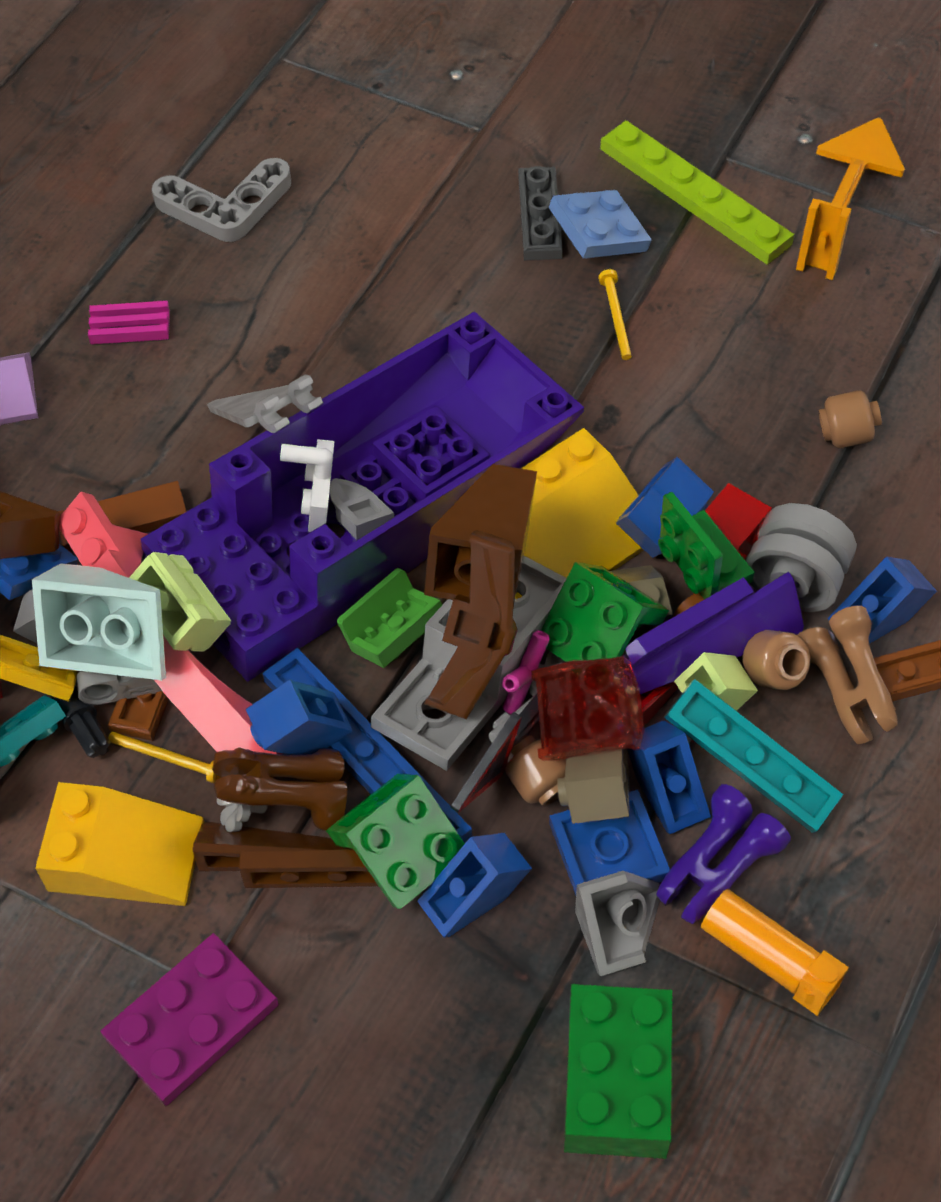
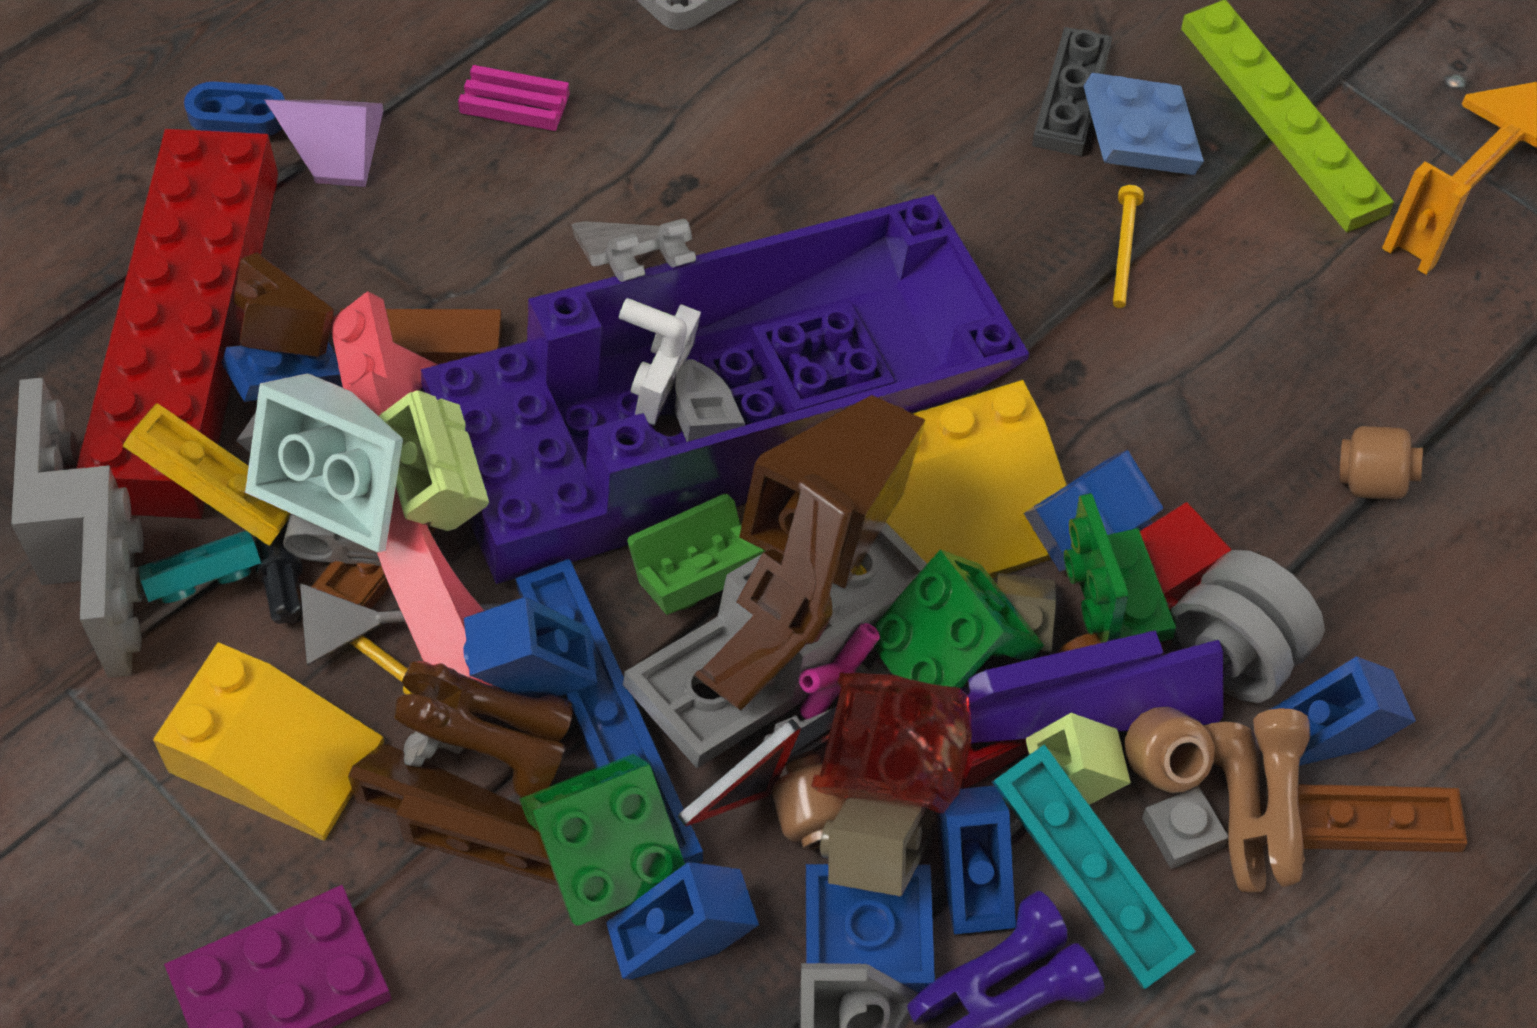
camera: 15 degrees right, 0 degrees up
(138, 743) = (336, 622): none -> light grey piece
(803, 711) = (1185, 827): none -> light grey plate

